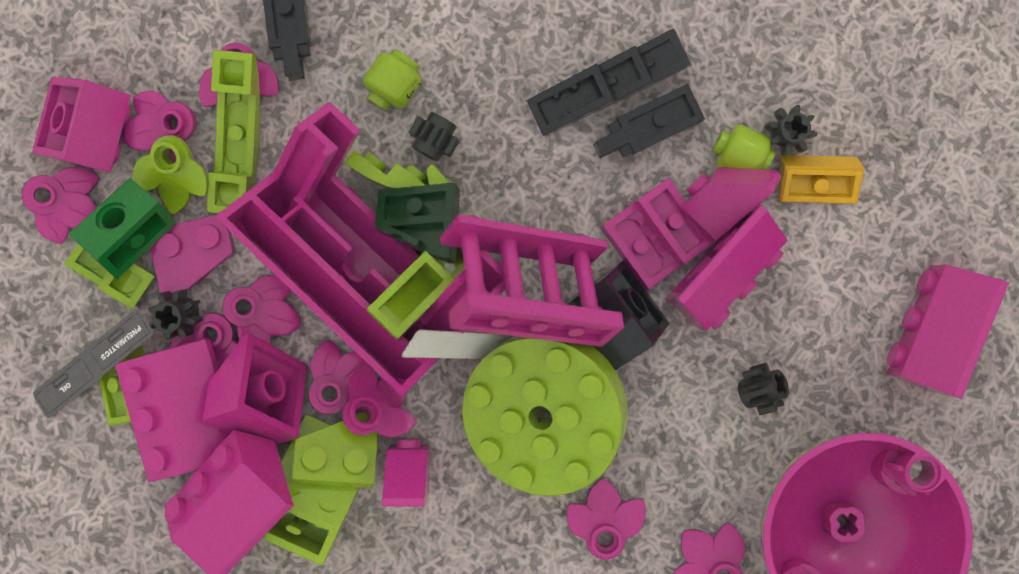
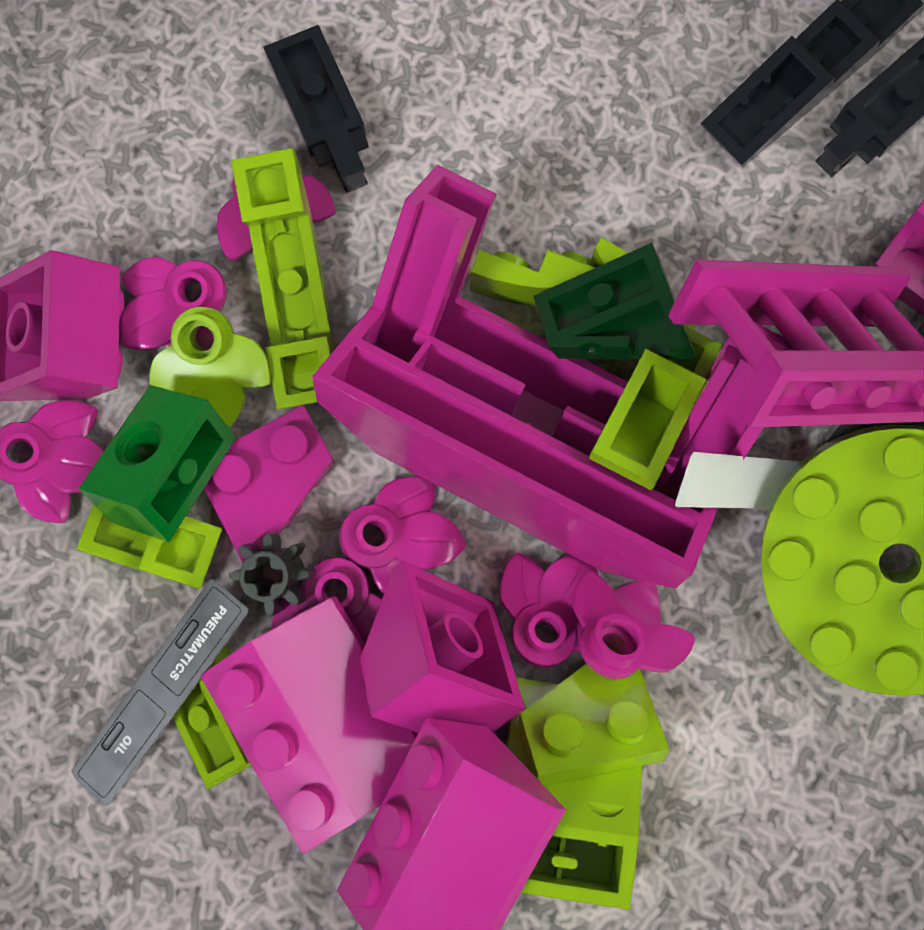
camera: 15 degrees left, 10 degrees down
(392, 80) = (500, 145): lime head -> none
(406, 474) = (713, 720): dark pink slope -> none
(434, 136) = (586, 205): pearl dark grey gear -> none

